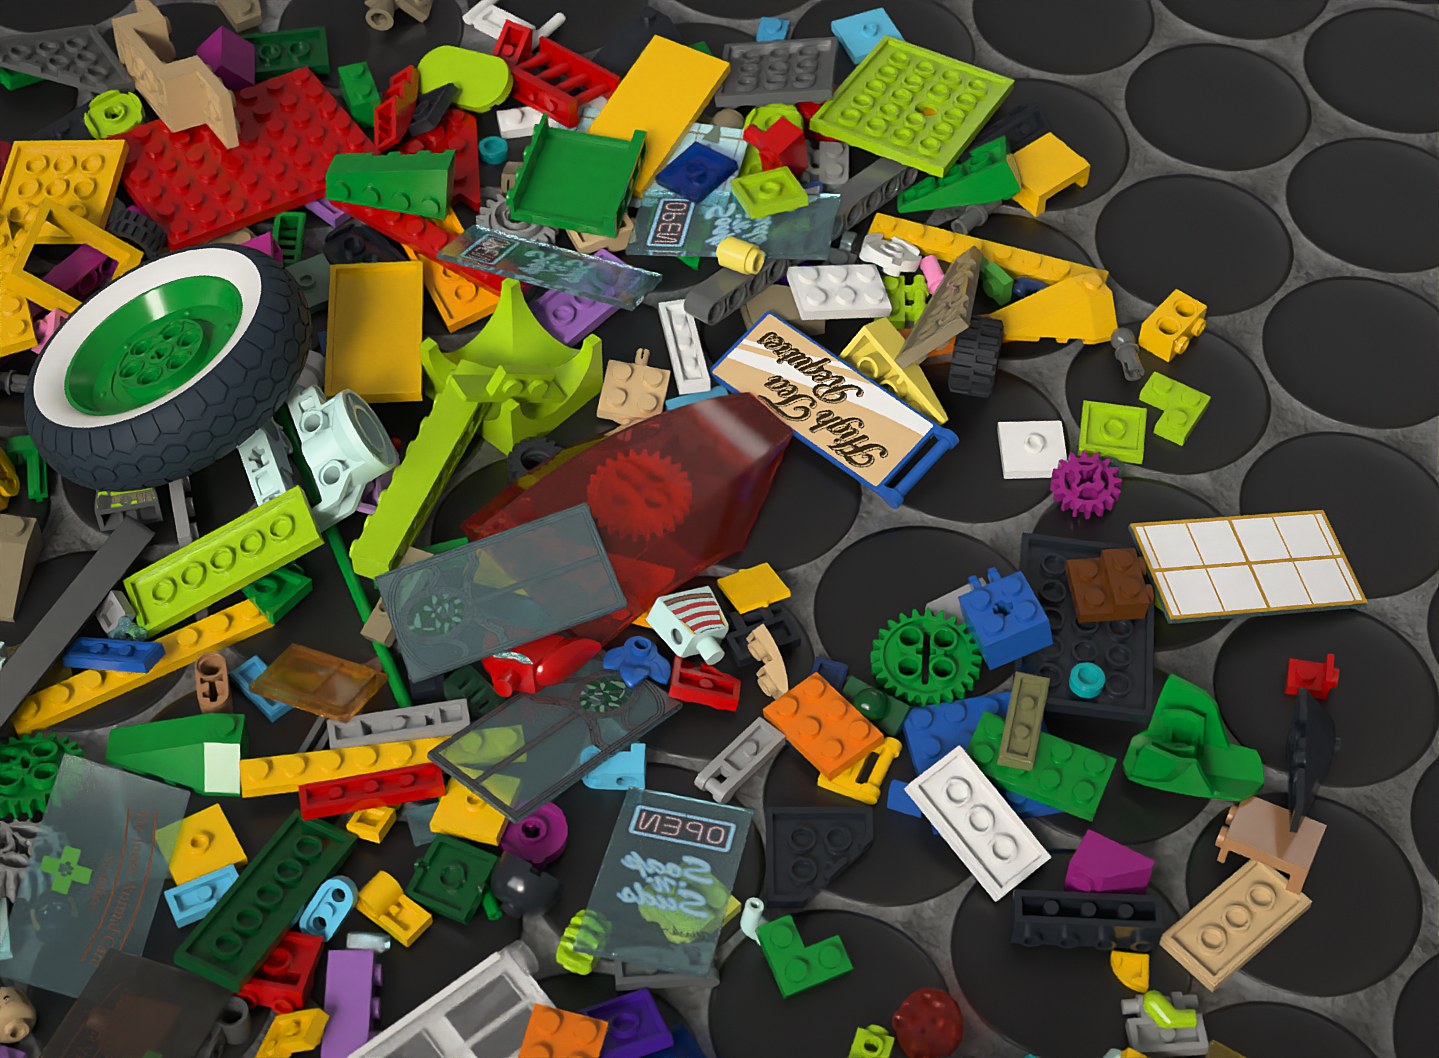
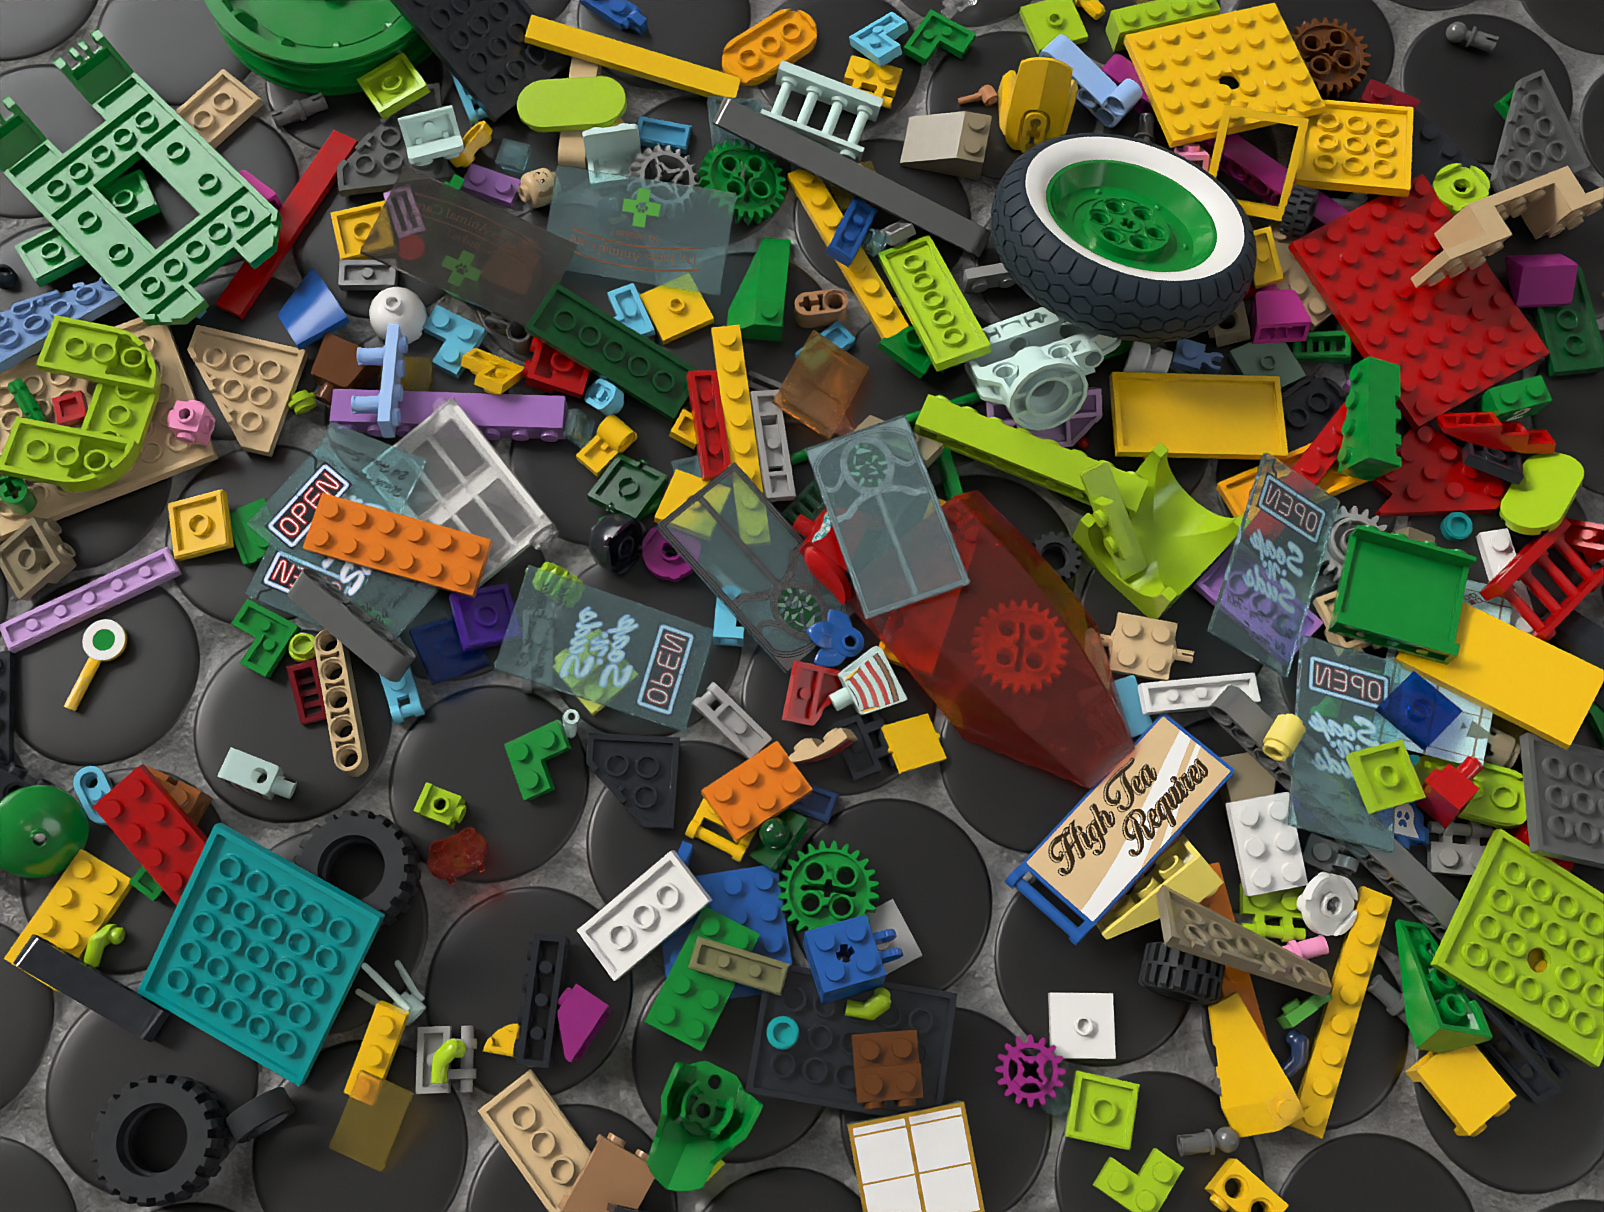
camera: 90 degrees right, 20 degrees up
(1053, 603) = (872, 1007): none -> lime arm

